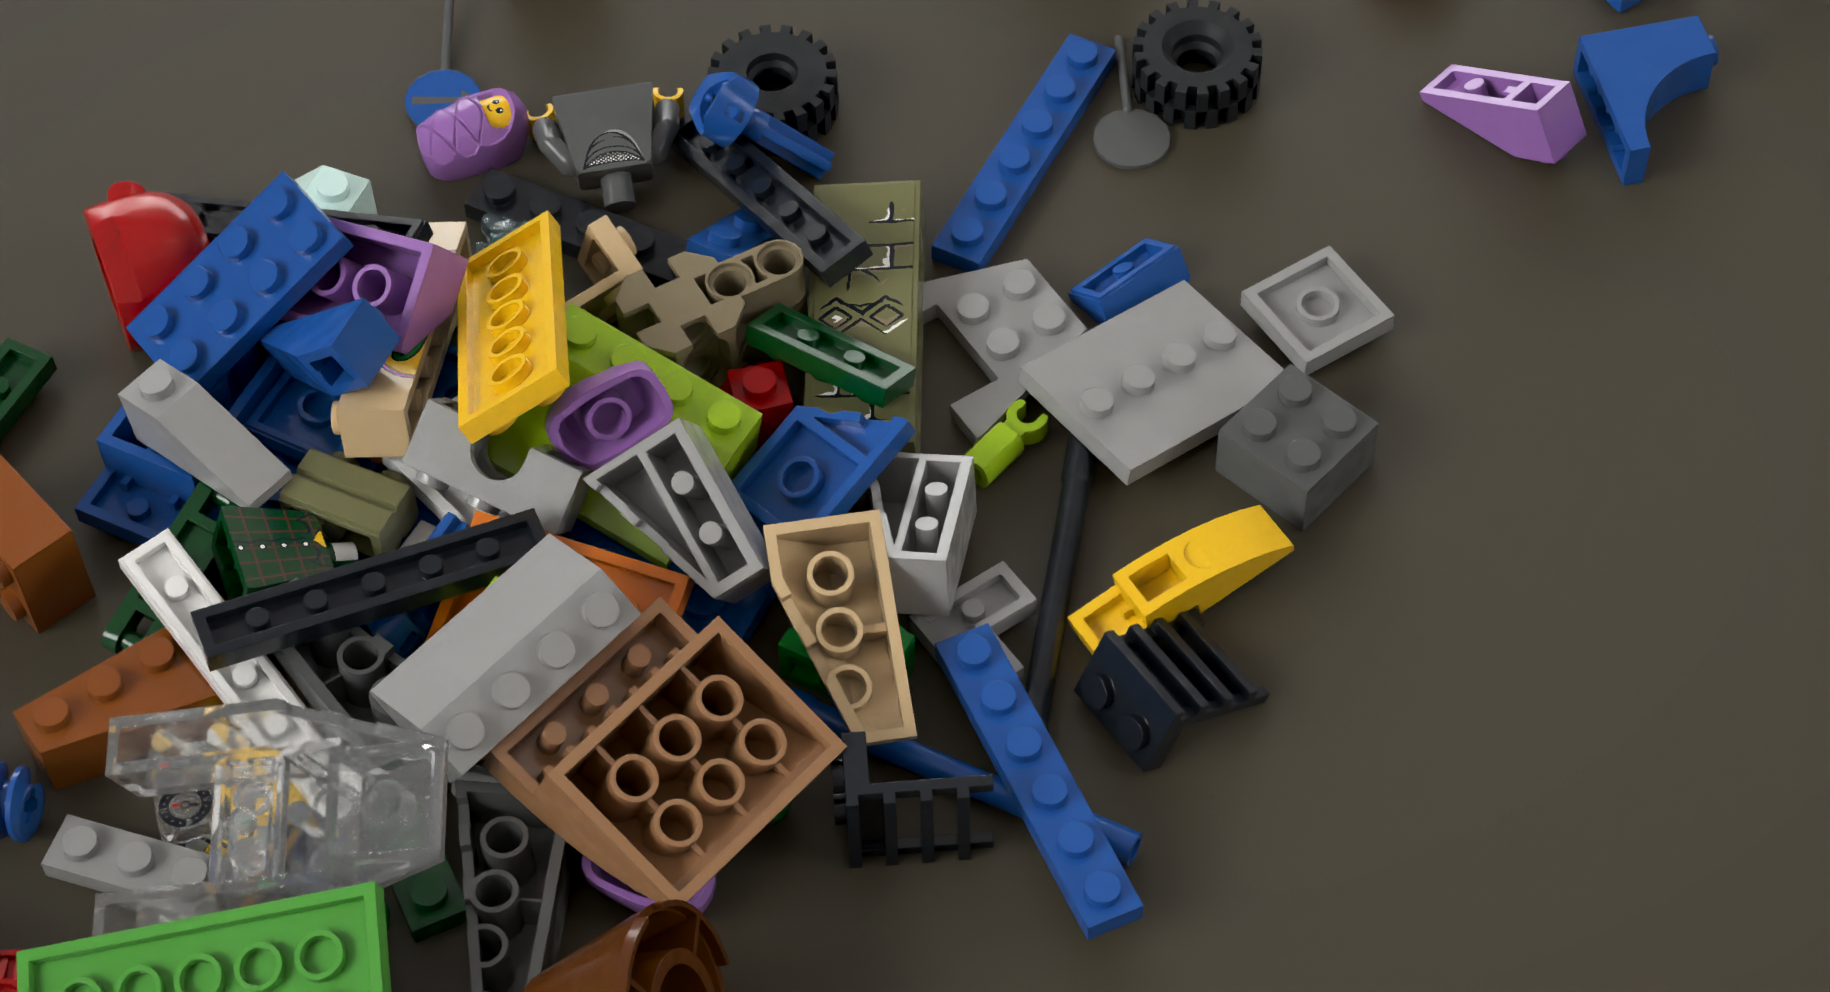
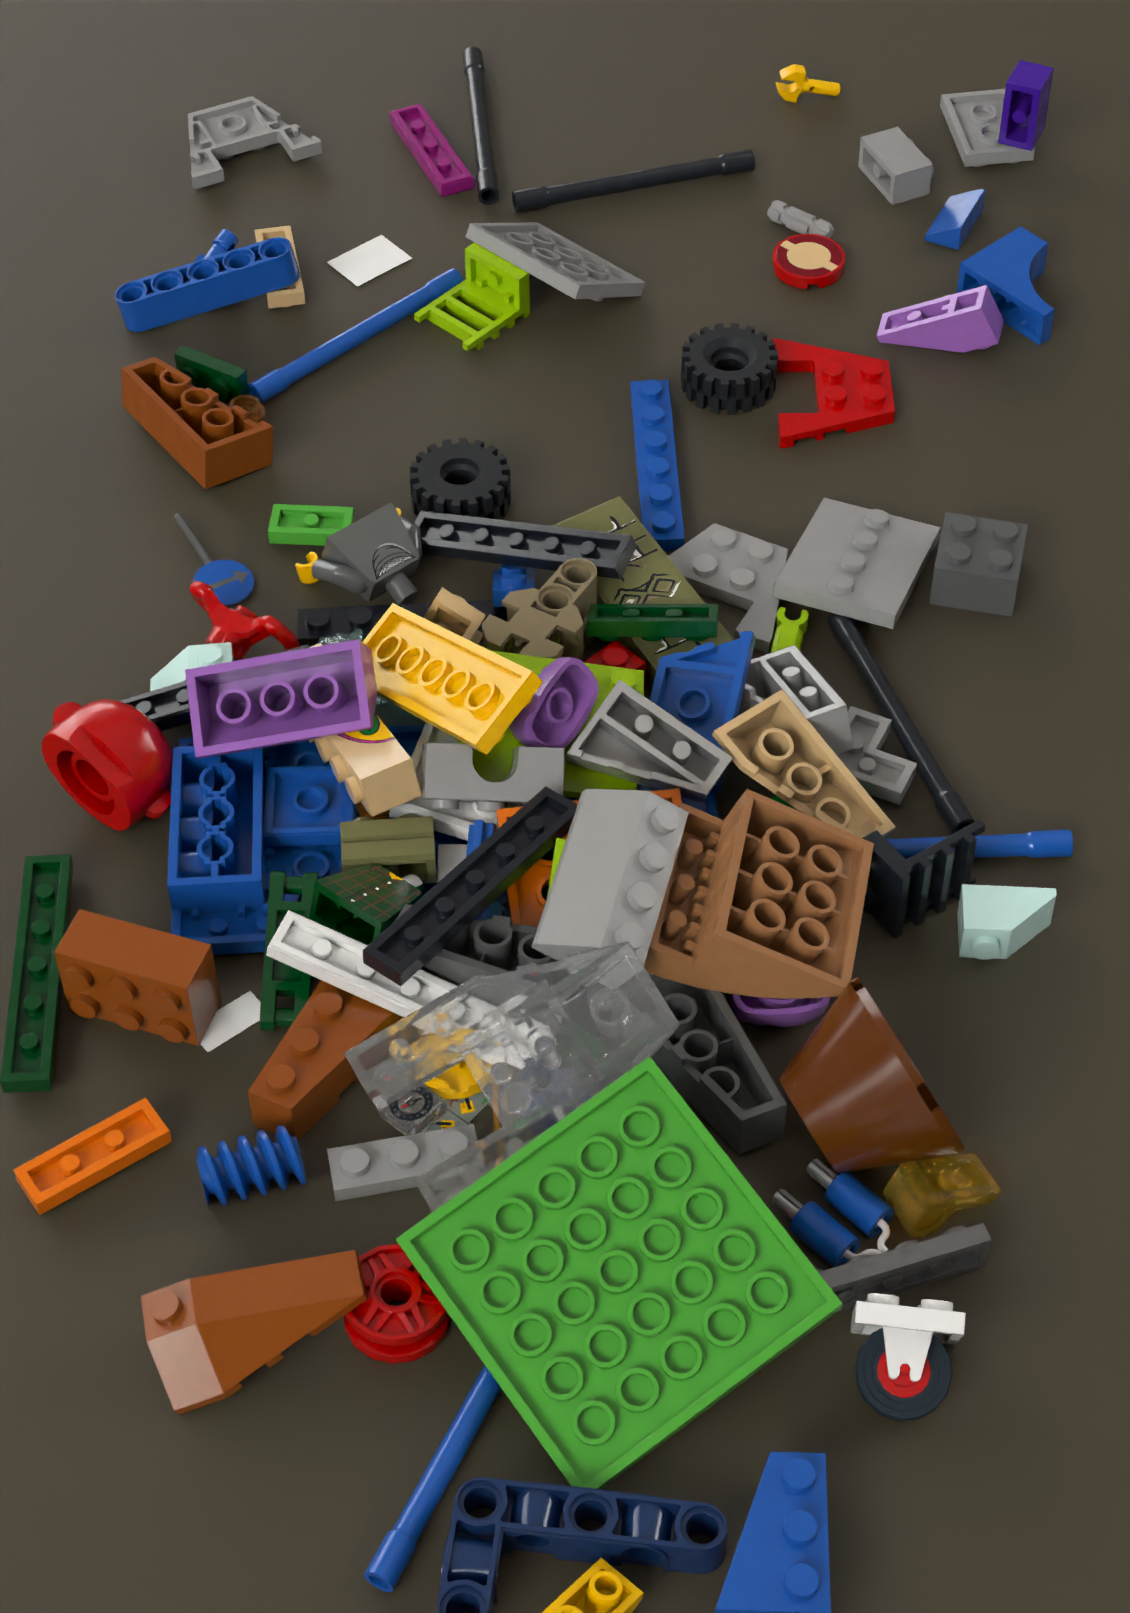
camera: 30 degrees left, 5 degrees down
(82, 623) = (232, 1020): none -> white sticker
(201, 436) = (256, 843): light grey slope -> none
(241, 283) = (215, 734): blue plate -> none
(334, 347) = (319, 745): blue slope -> none
(401, 161) = (239, 625): none -> red piece
(474, 135) = (272, 586): medium lavender piece -> none
(575, 65) = (307, 523): none -> bright green plate
(735, 114) = (467, 502): blue piece -> none
(972, 906) = (1001, 918): none -> light aqua slope
(1039, 782) = (1005, 833): blue plate -> none
(1130, 136) = (710, 430): dark grey piece -> none
(1130, 279) = (788, 512): blue slope -> none
(1160, 681) = (1010, 740): black plate -> none
(1184, 574) = (971, 673): yellow slope -> none
(1317, 310) = (921, 482): light grey plate -> none
(1327, 154) = (849, 391): none -> red wing

